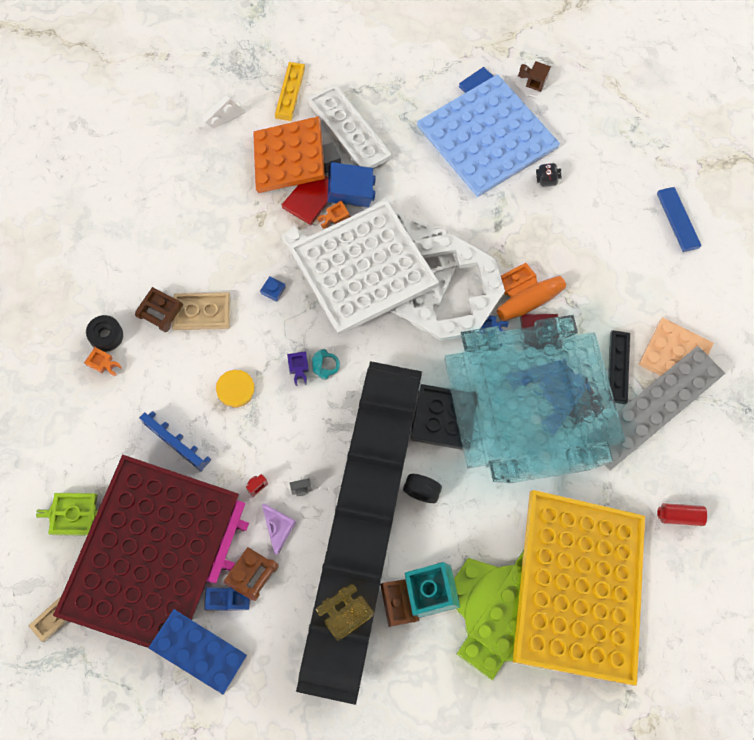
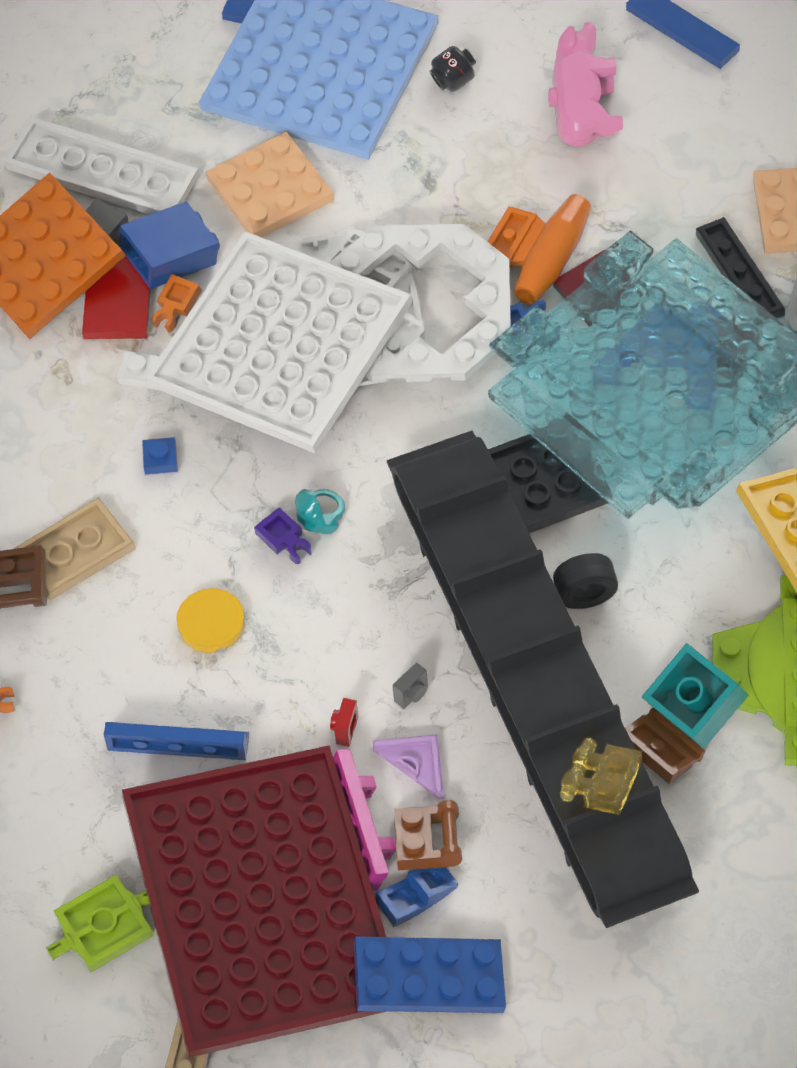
camera: 25 degrees left, 10 degrees down
(420, 183) = (270, 185): none -> light nougat plate
(604, 218) = (577, 87): none -> bright pink animal

